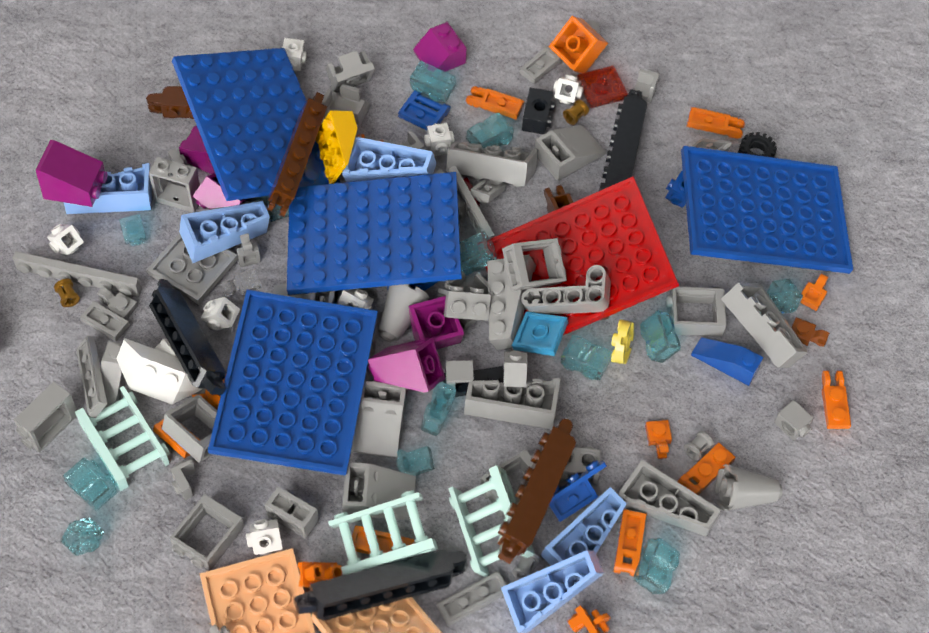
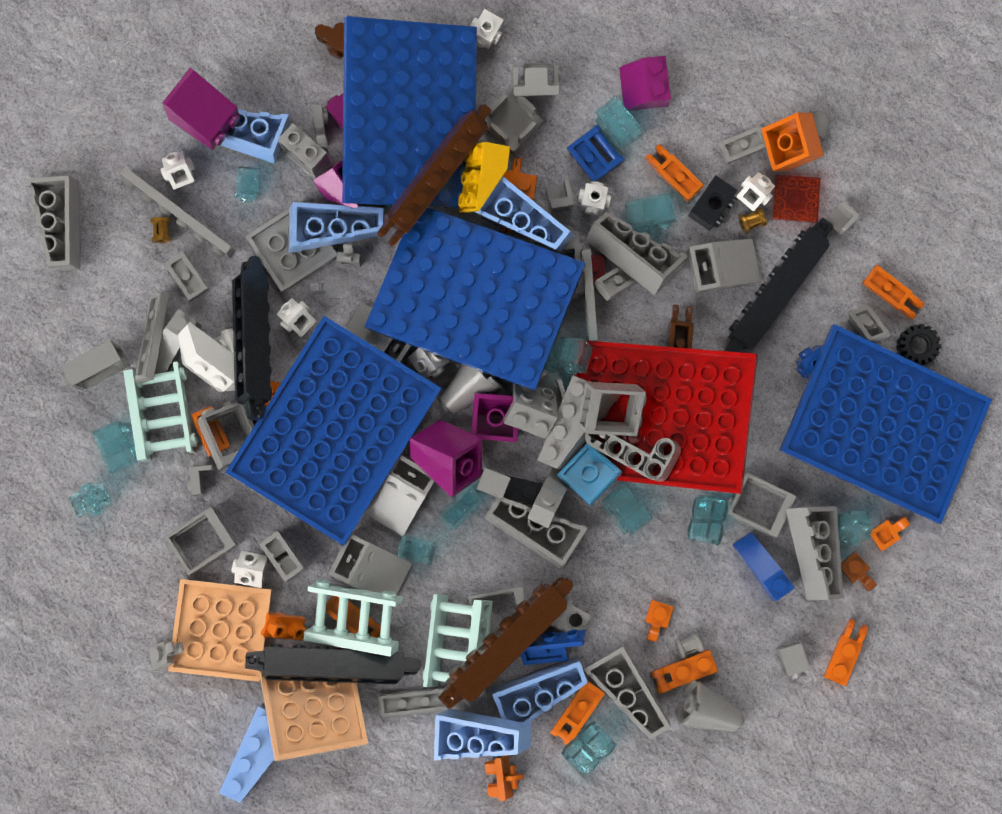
camera: 25 degrees right, 25 degrees up
(119, 304) = (207, 262): light grey plate -> none
(622, 341) = (663, 516): light yellow plate -> none

